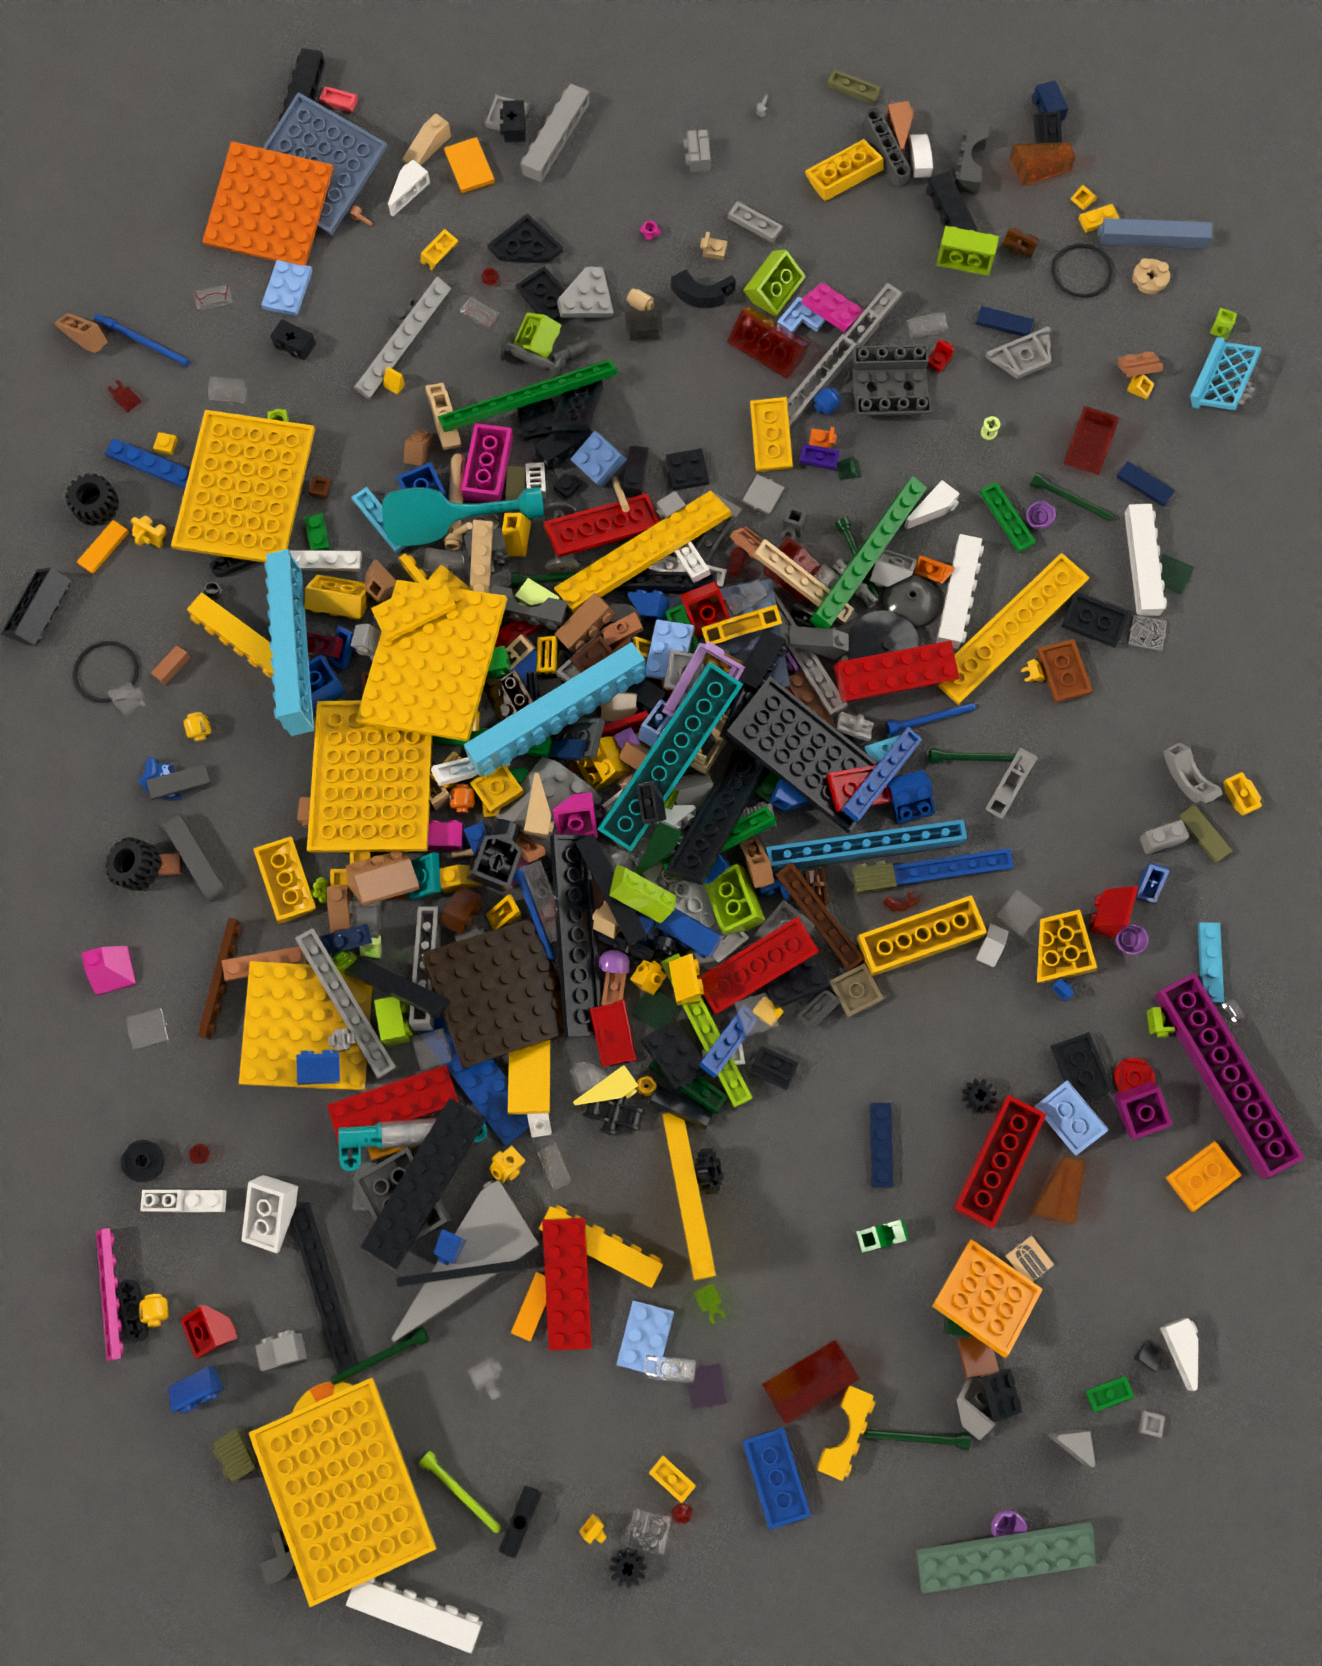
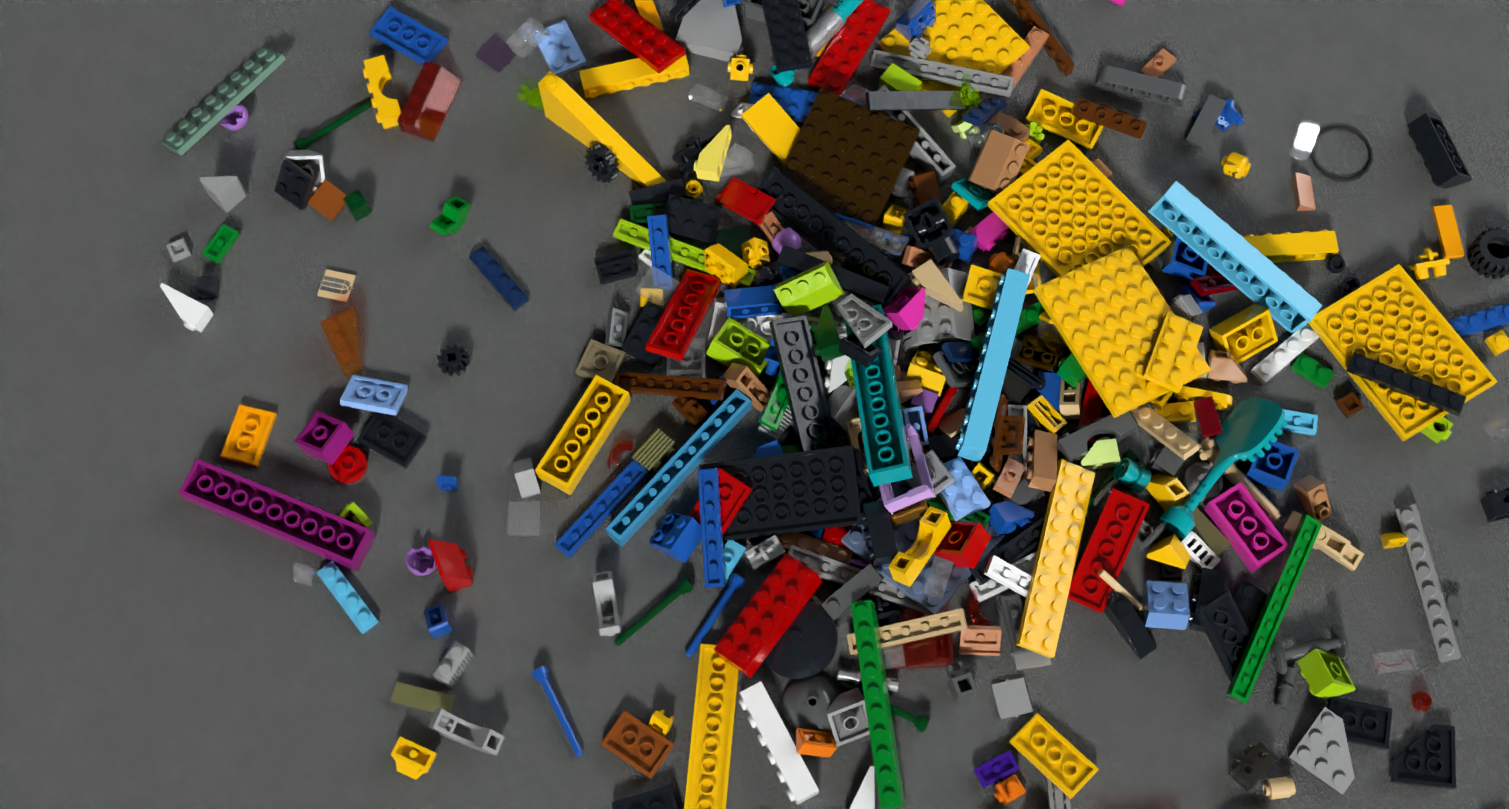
camera: 140 degrees right, 5 degrees down
(122, 858) = (1172, 45): black tyre -> none
(251, 846) = (1109, 118): none -> reddish brown bracket
(270, 459) = (1406, 384): none -> black plate
(433, 554) = (1208, 417): none -> dark red tile
(438, 249) = (1487, 685): yellow hinge -> none
(530, 561) = (1133, 476): none -> teal wheel
(558, 489) = (1170, 552): none -> yellow slope
(626, 822) = (863, 319): none -> light grey wing
(669, 505) = (1072, 617): light grey brick -> none
(687, 469) = (1092, 666): black plate -> none
(848, 469) = (963, 782): clear green slope -> none
(987, 1298) = (347, 231): light orange plate -> none
(999, 1162) = (404, 325): red brick -> none
(1064, 948) = (468, 511): yellow wedge -> none
(1099, 777) = (541, 675): none -> blue piece

